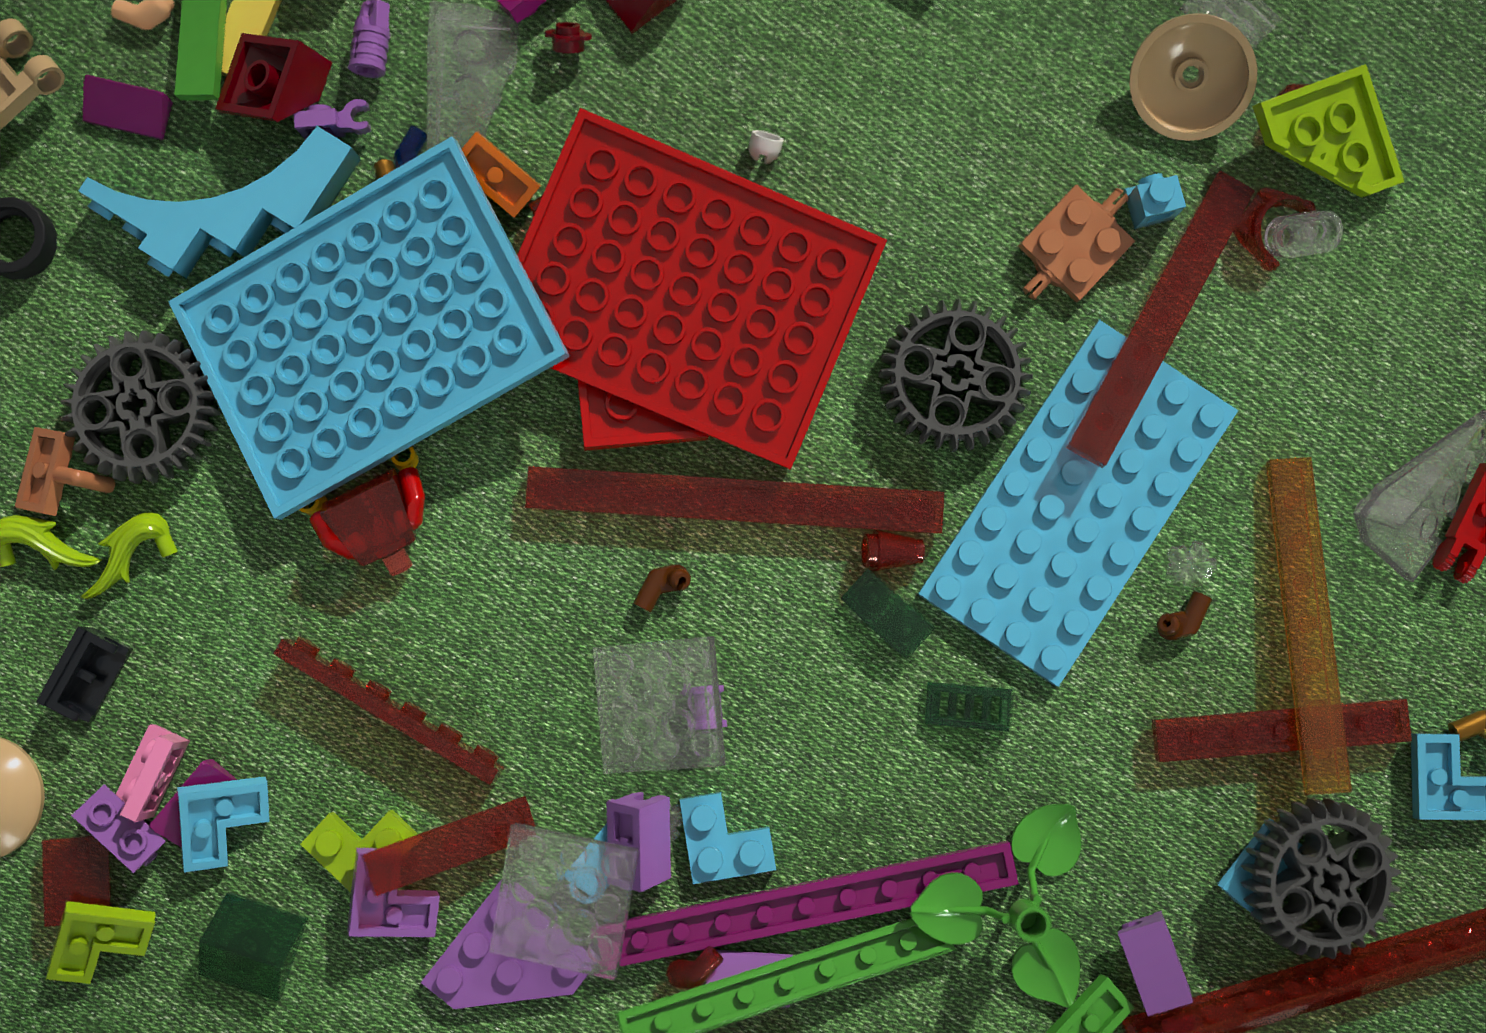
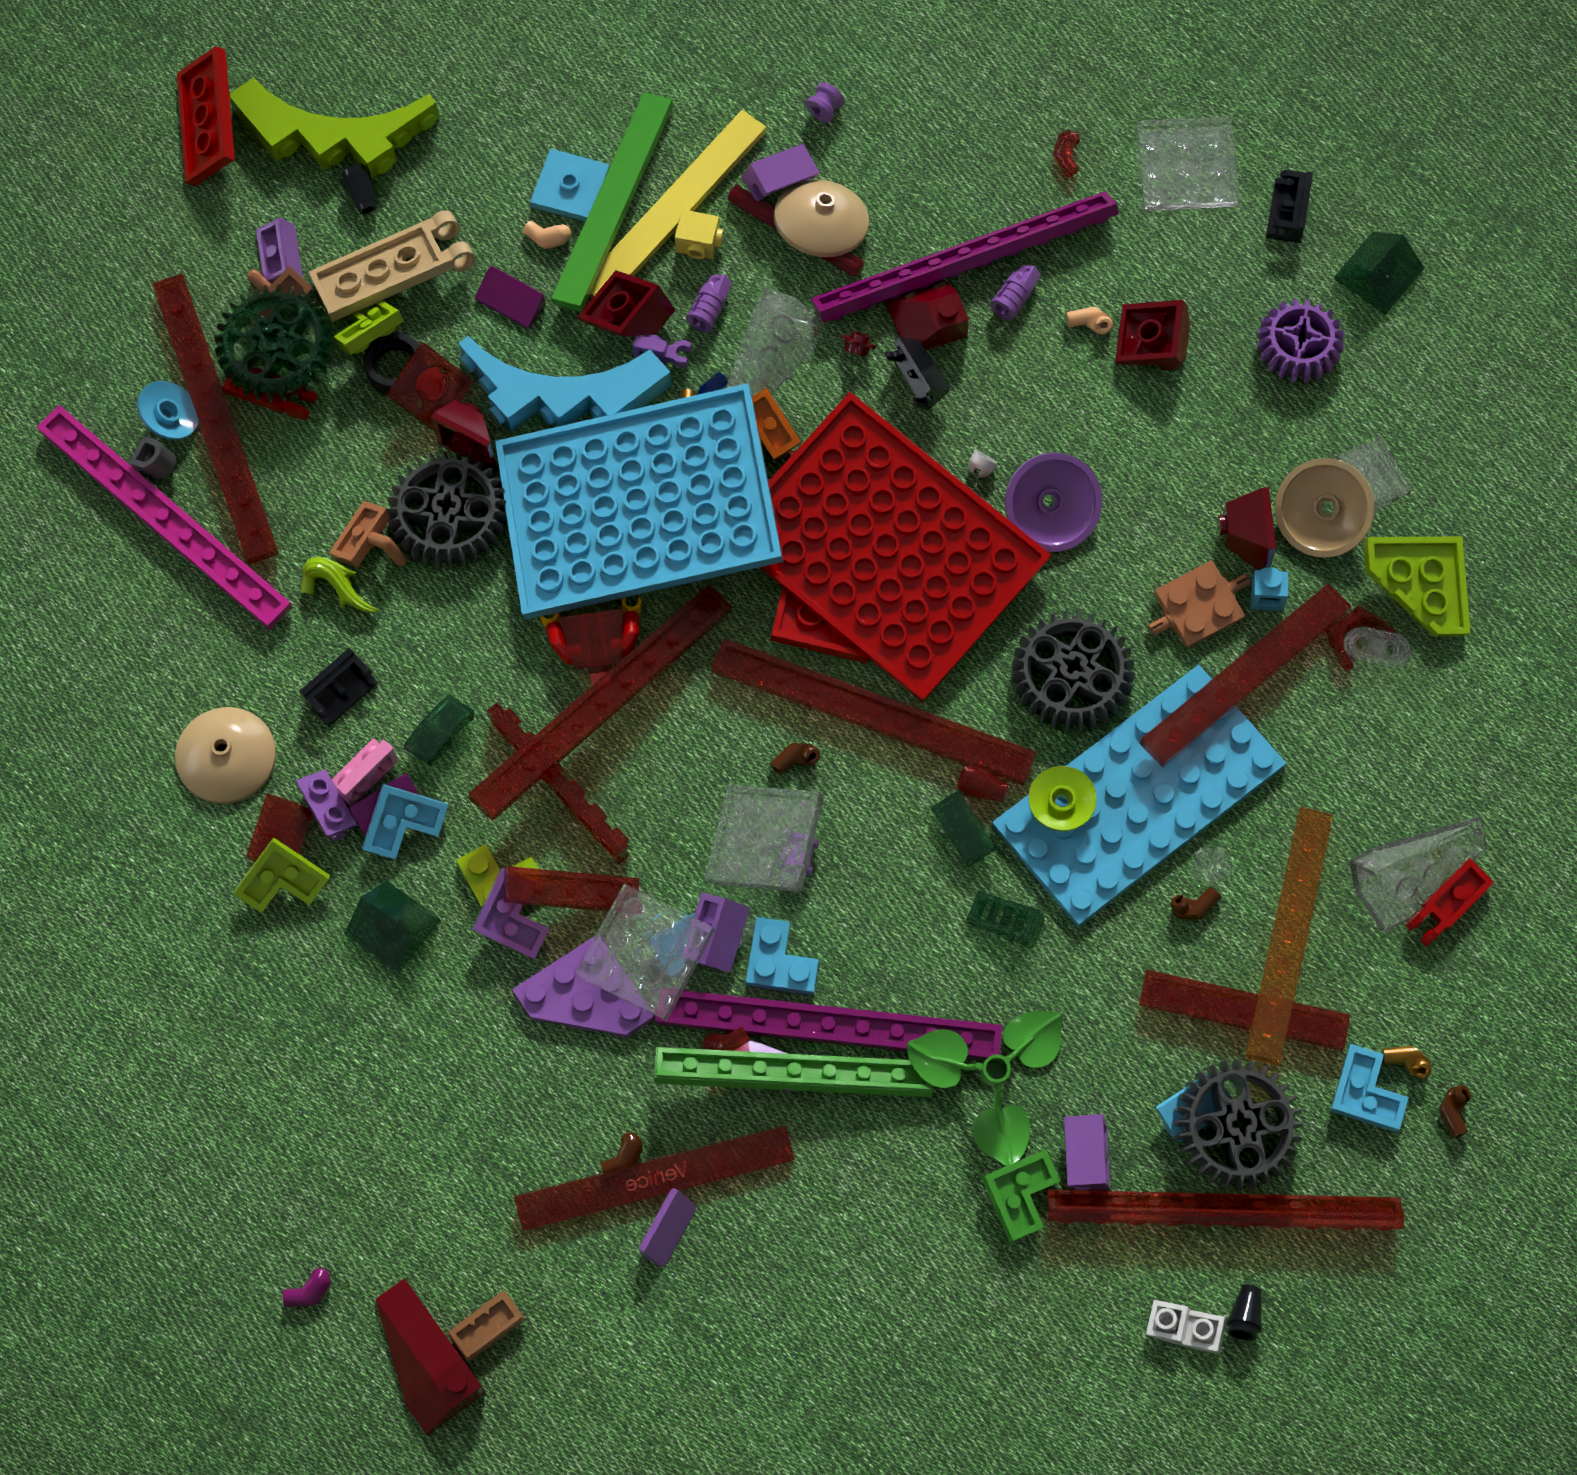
camera: 20 degrees right, 15 degrees down
(65, 257) = (428, 384): none -> clear red tile
(122, 545) = (399, 603): lime piece -> none
(126, 300) = (464, 430): none -> dark red slope
(223, 689) = (436, 730): none -> clear green slope
(404, 604) = (599, 703): none -> clear red plate
(653, 52) = (919, 372): none -> black hinge
(890, 172) = (1074, 503): none -> medium lavender dish
(1018, 540) = (1067, 784): none -> lime dish
(1114, 132) = (1250, 528): none -> dark red slope

